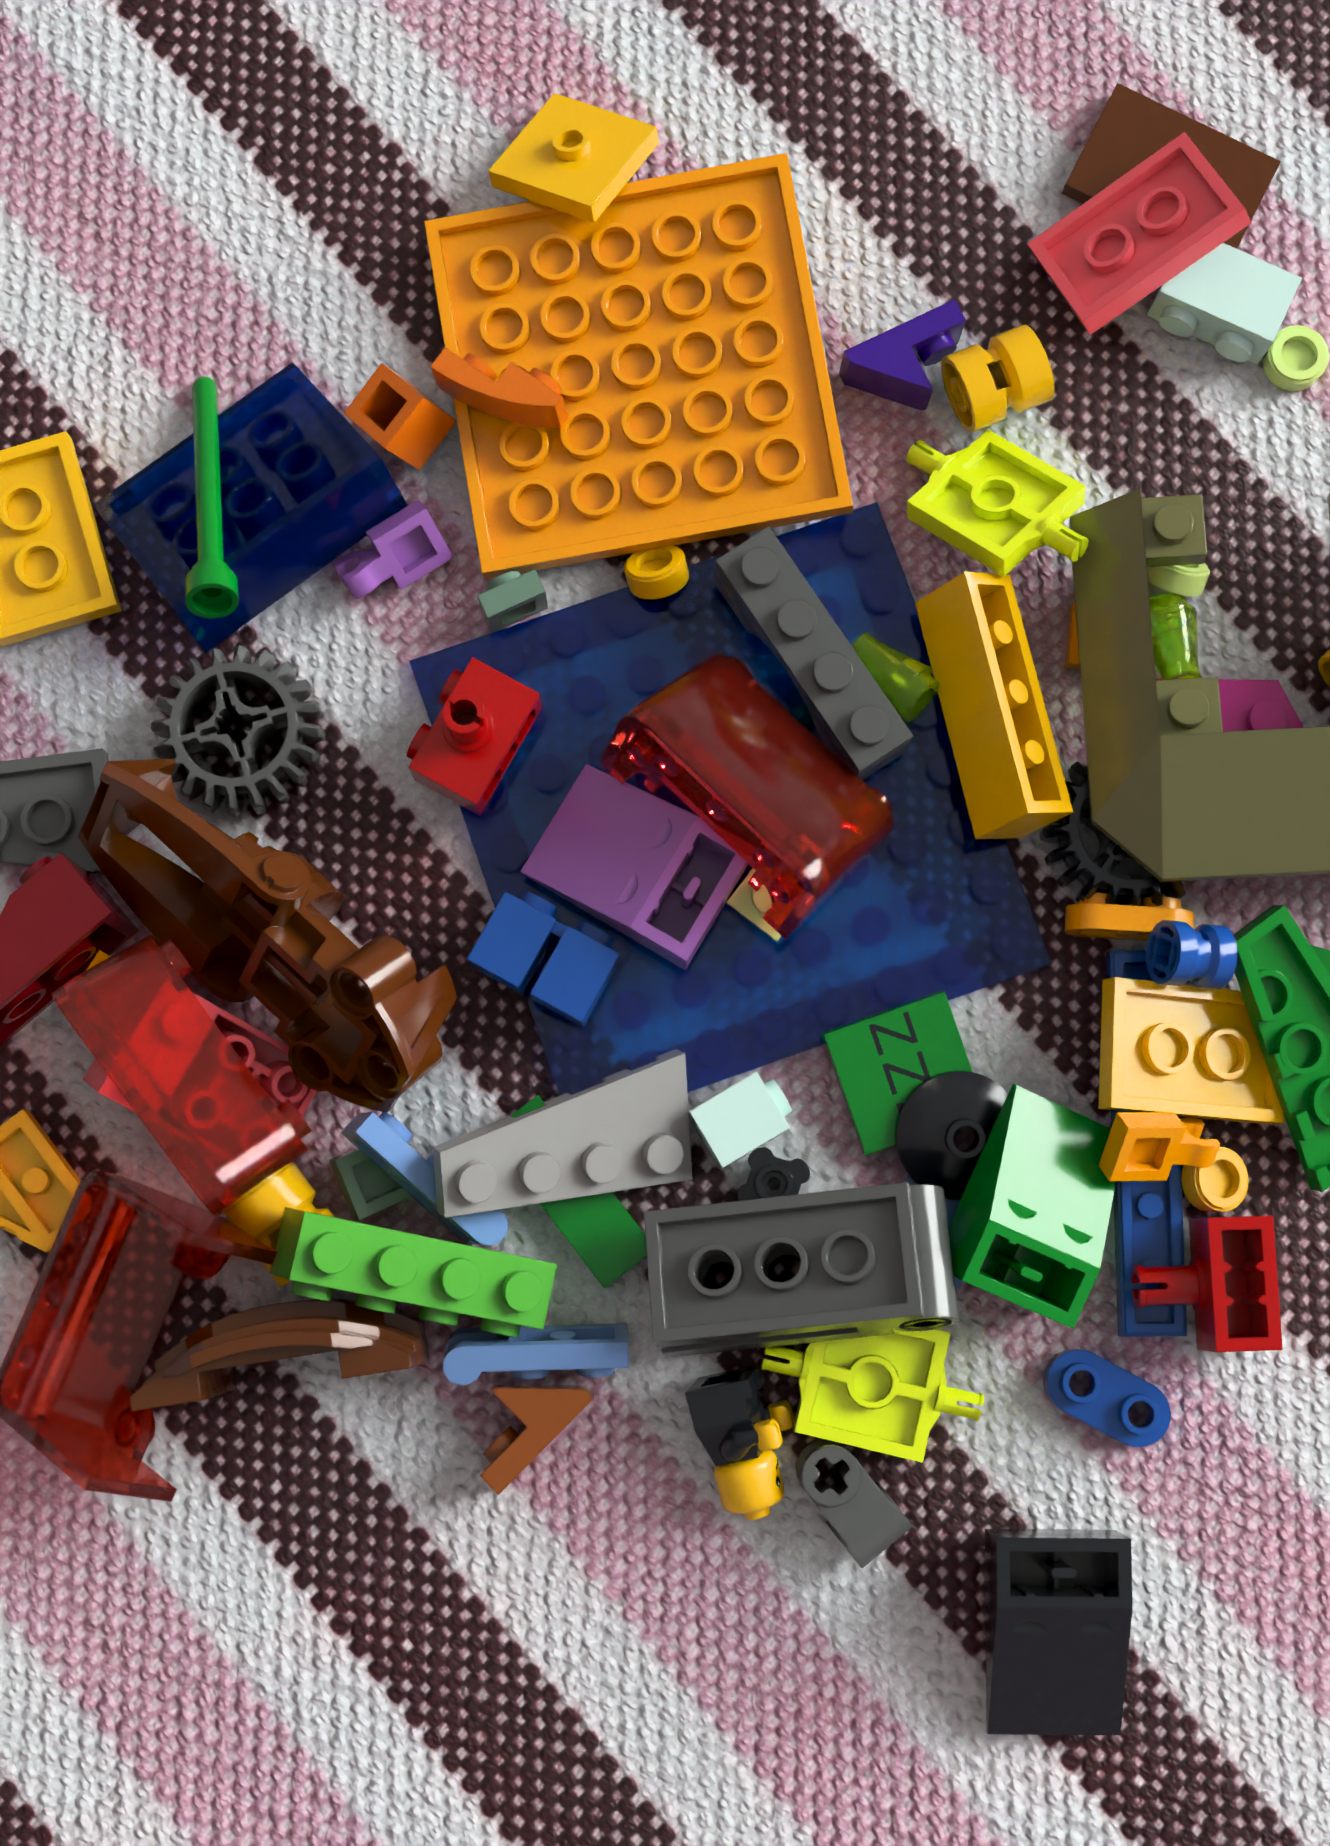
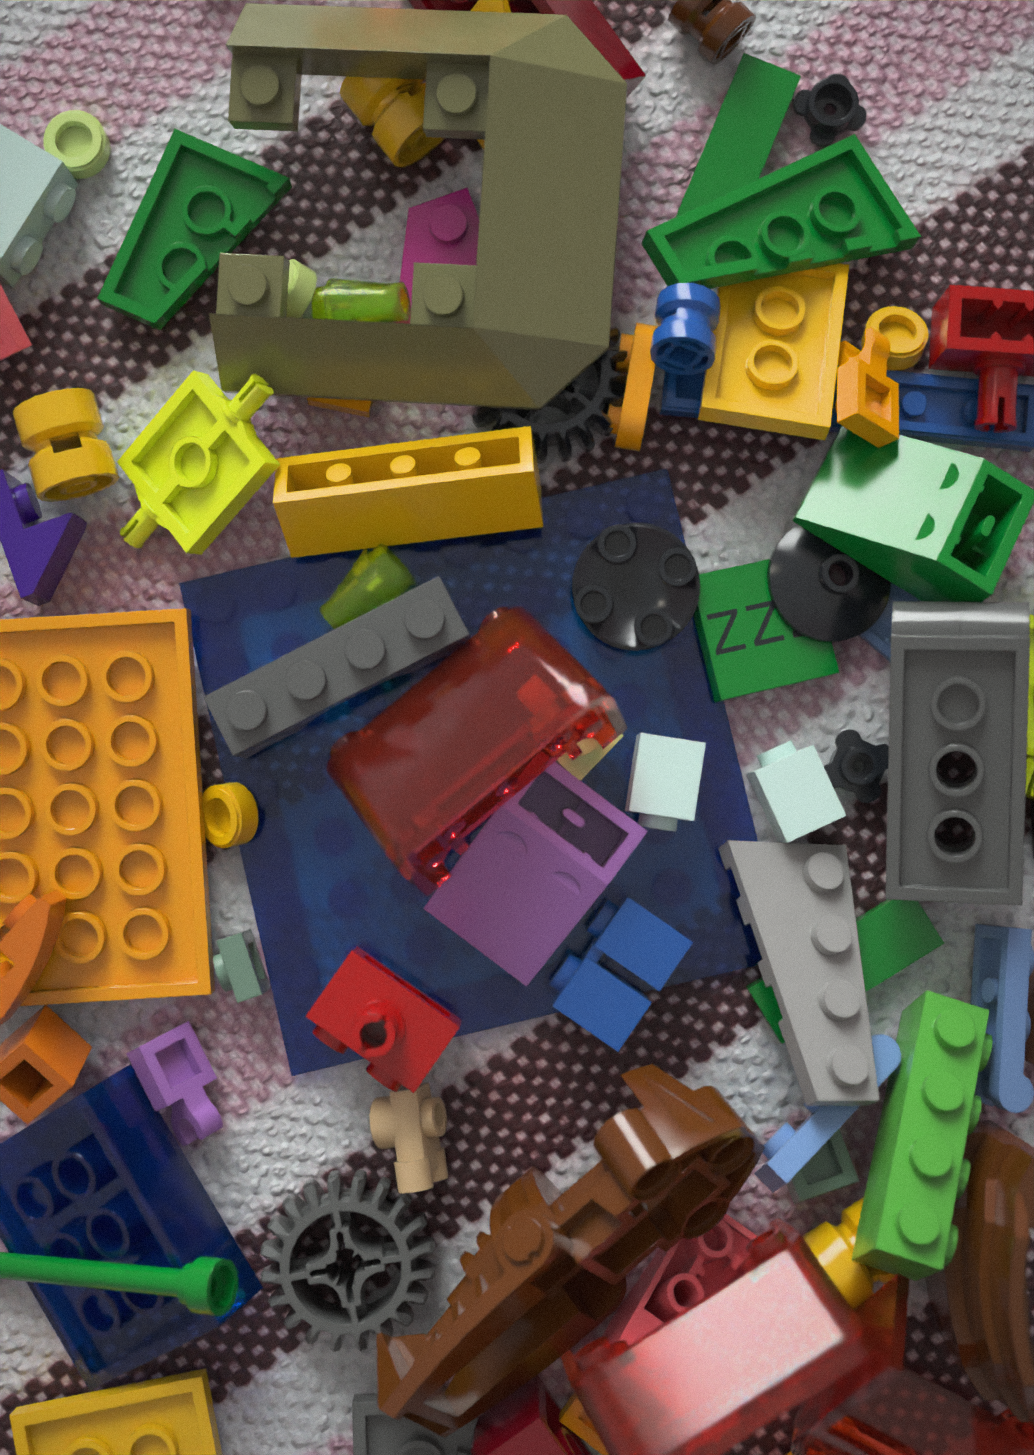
camera: 80 degrees left, 5 degrees up
(371, 779) = (413, 1127): none -> tan plate
(737, 983) = (664, 780): none -> light aqua brick
(927, 938) = (635, 586): none -> black dish
(1246, 473) = (191, 212): none -> green wing

